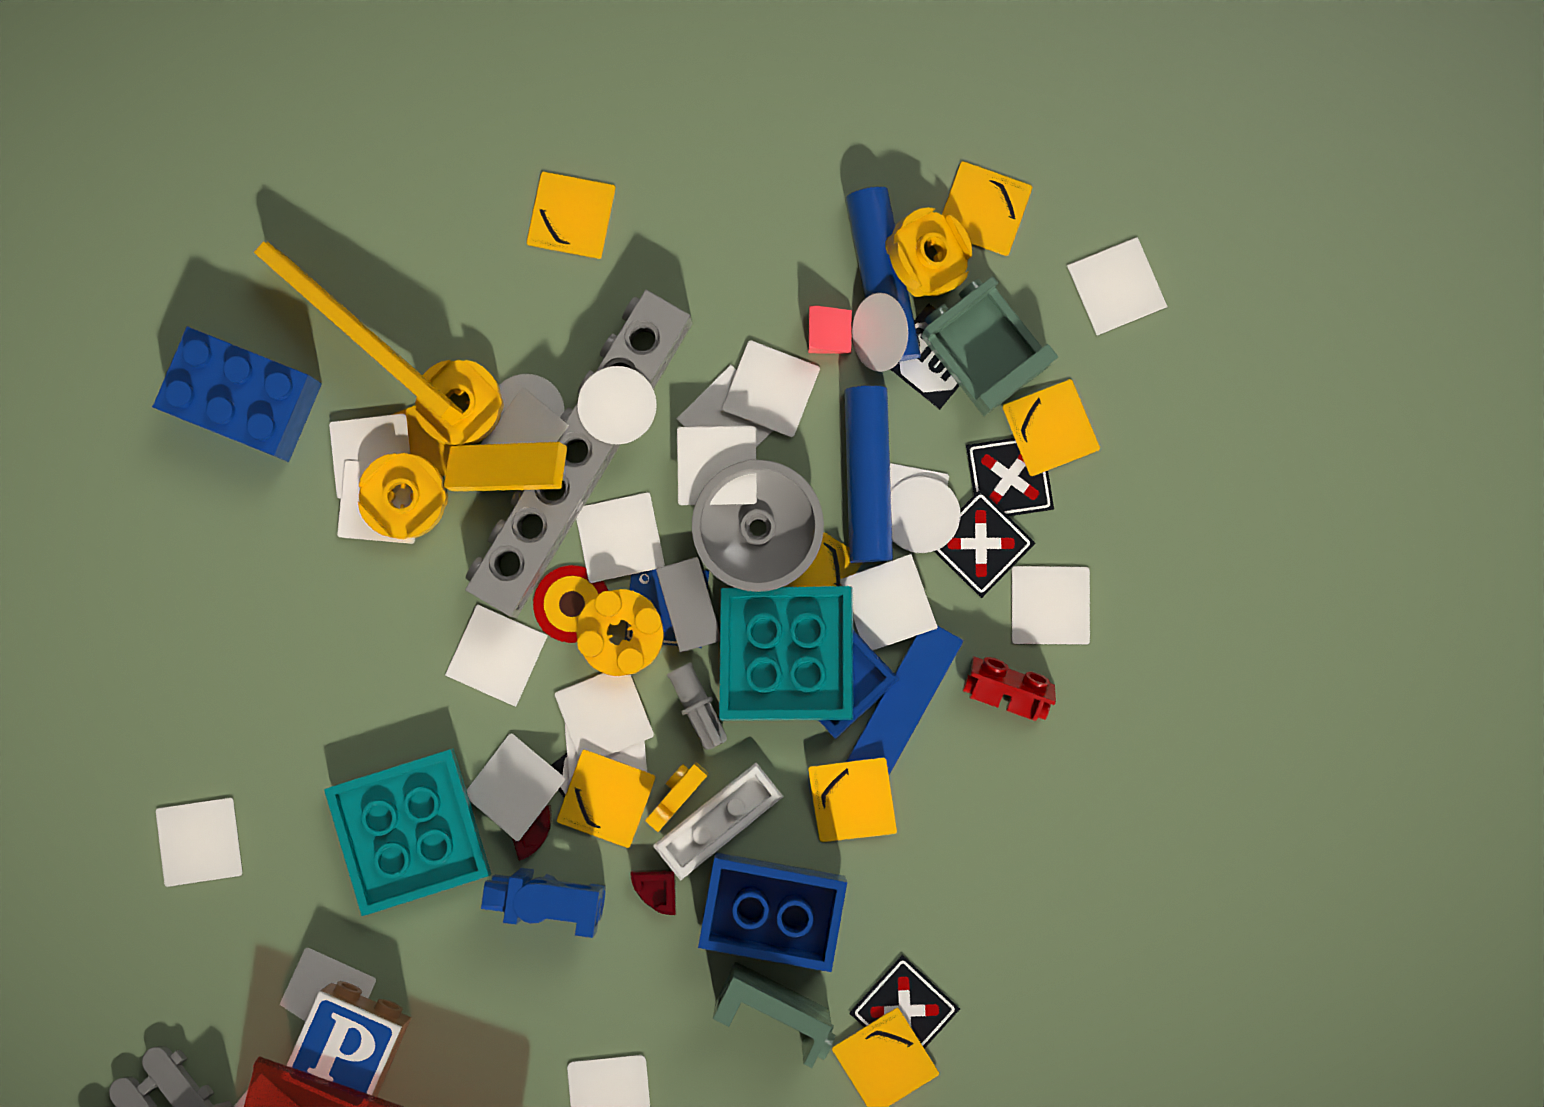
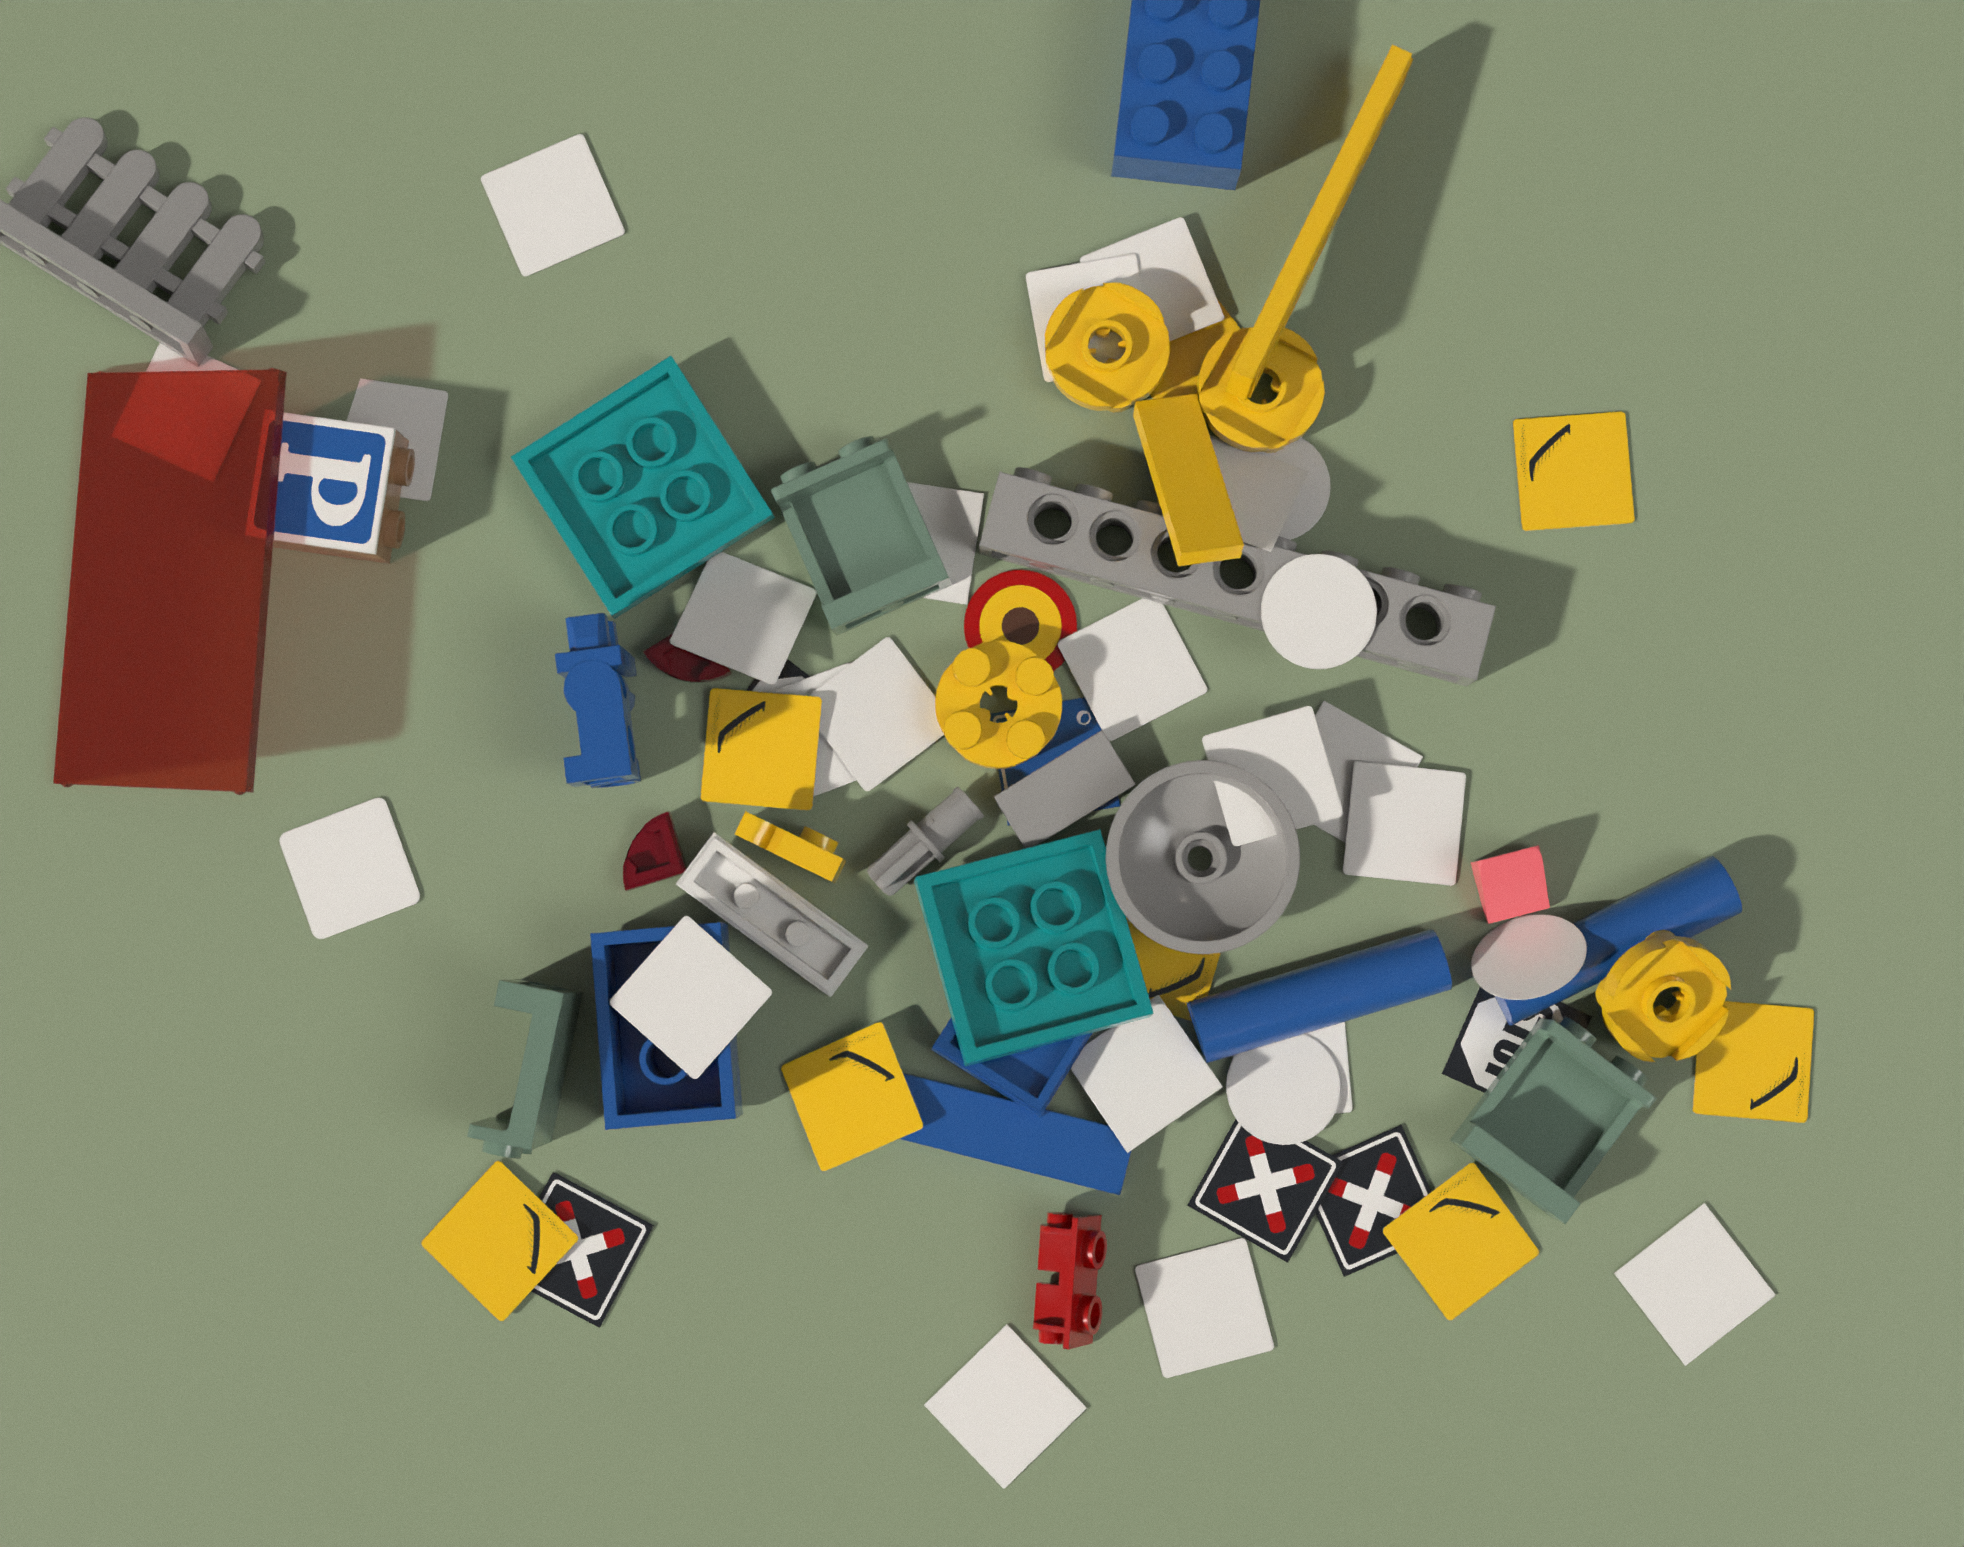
camera: 80 degrees right, 0 degrees up
(480, 694) = (860, 534): none -> sand green panel
(758, 891) = (690, 997): none -> white sticker
(1081, 753) = (1005, 1406): none -> white sticker

